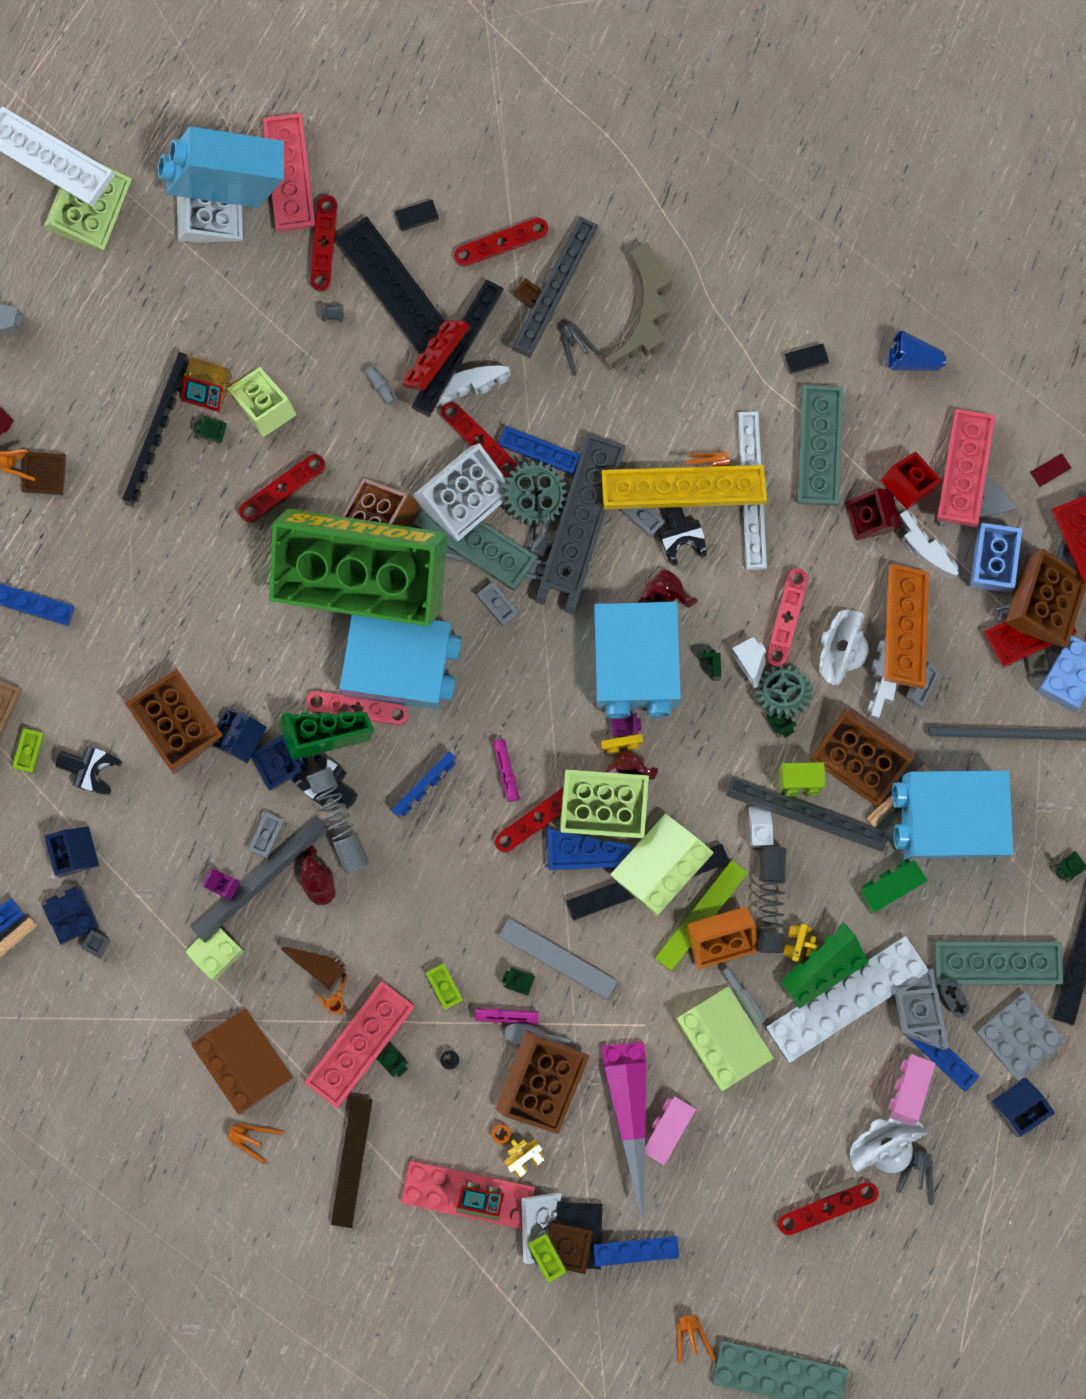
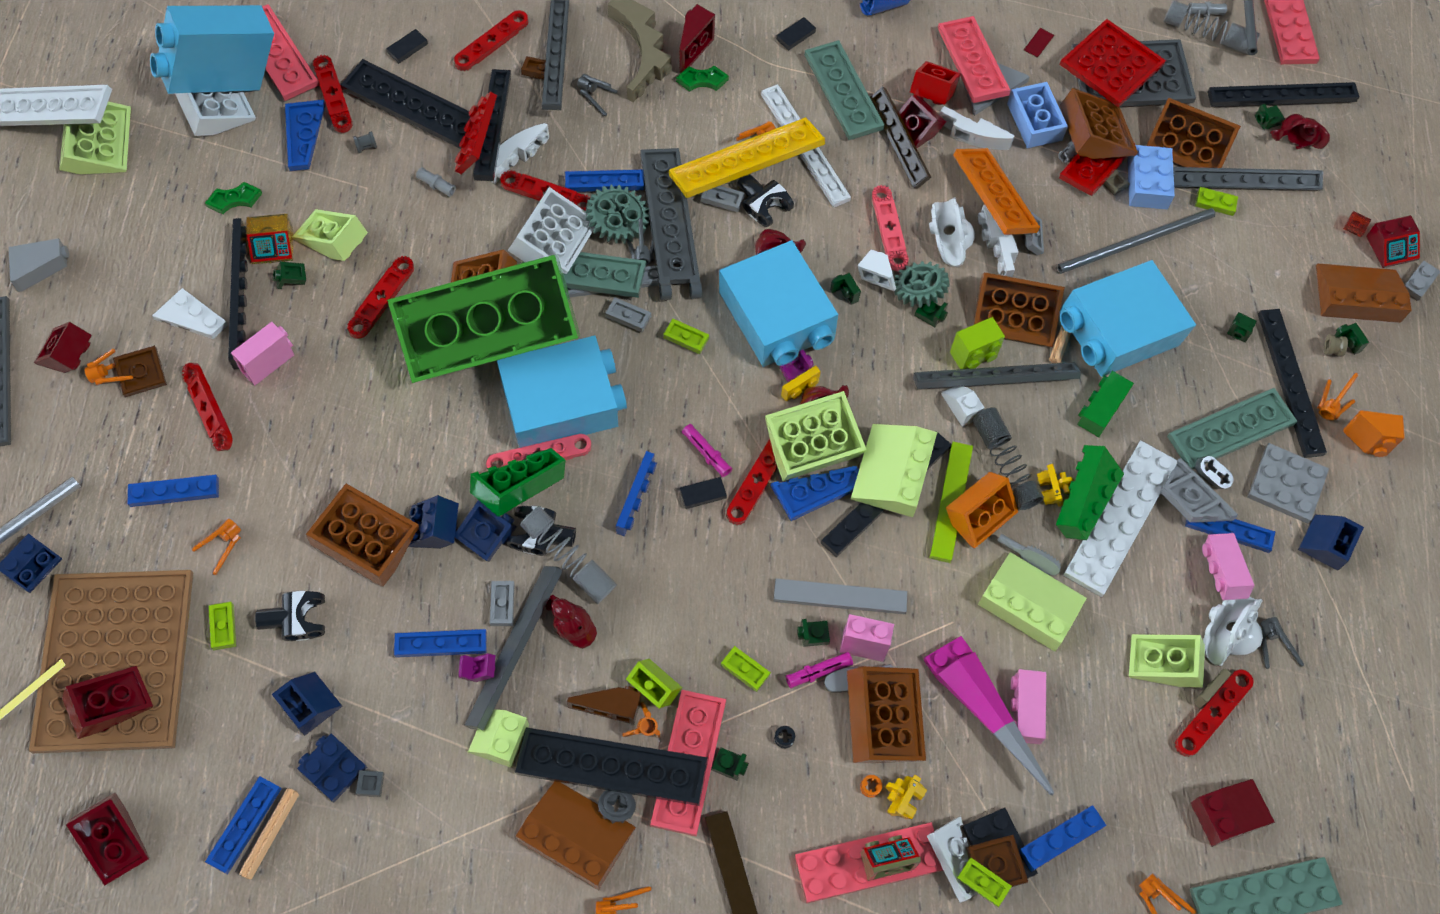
camera: 30 degrees left, 15 degrees down
(63, 665) = (227, 531): none -> orange plant
(89, 535) = (207, 407): none -> red piece
(108, 433) = (189, 313): none -> white wing
(155, 506) = (263, 353): none -> bright pink brick
(198, 323) = (242, 195): none -> green tile
(200, 848) = (440, 643): none -> blue plate
(280, 273) = (302, 130): none -> blue wing
(282, 1044) = (626, 809): none -> dark grey gear
(294, 1021) = (612, 766): none -> black plate
(360, 966) = (654, 683): none -> lime brick
(484, 809) = (703, 493): none -> black tile
(540, 649) = (686, 336): none -> lime plate
(556, 1010) = (866, 638): none -> bright pink brick
(679, 369) = (694, 78): none -> green tile
(701, 324) = (696, 35): none -> dark red slope
(793, 1297) = (1231, 812): none -> dark red slope
(812, 1145) = (1168, 659): none -> yellowish green slope
(847, 523) = (900, 138): none -> tile

